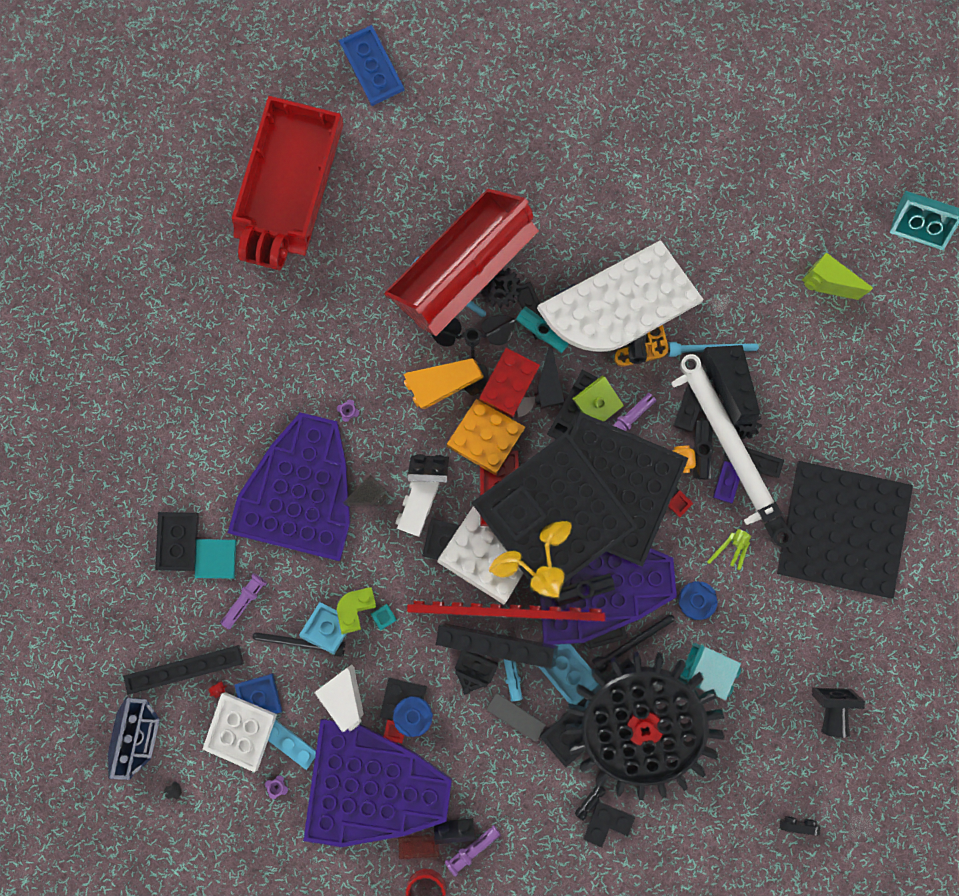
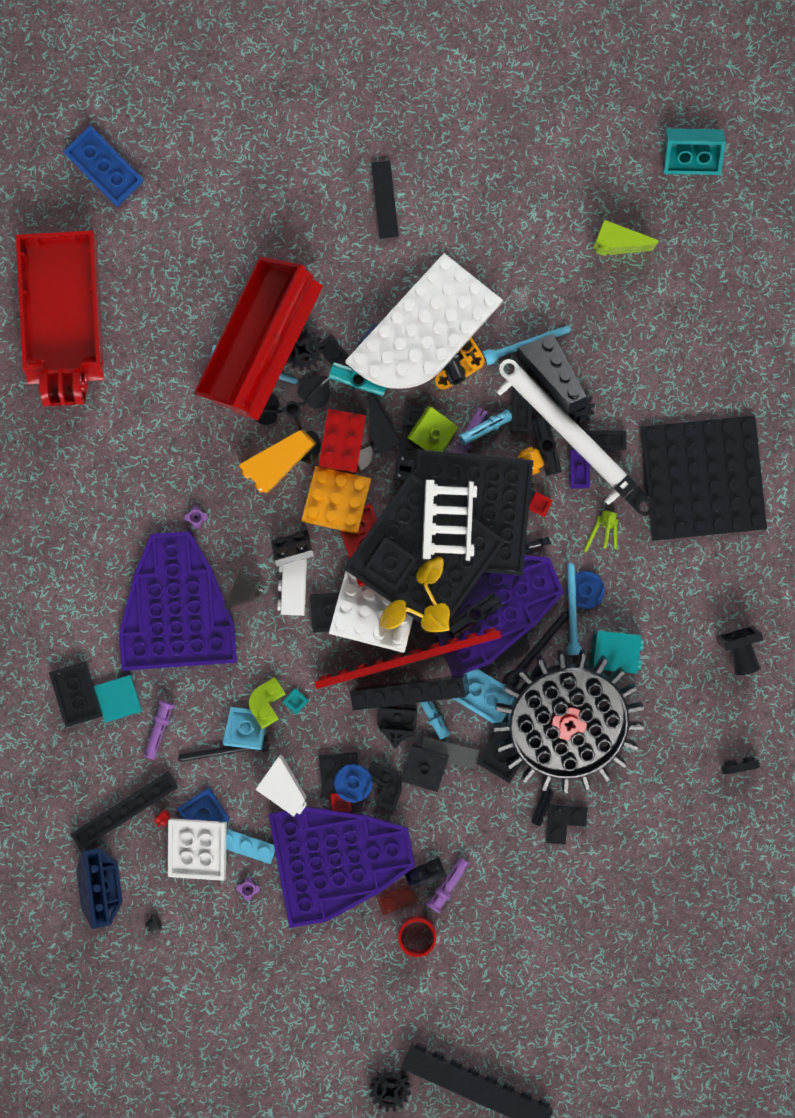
camera: 25 degrees left, 5 degrees up
(449, 729) = (391, 785): none -> black plate
(487, 724) = (424, 768): none -> black plate
(575, 472) = (430, 528): none -> white fence
(620, 175) = (385, 199): none -> black tile
(666, 540) = (537, 543): none -> black arm
(668, 410) = (501, 419): none -> medium azure pin
(670, 652) = (574, 646): none -> medium azure piece

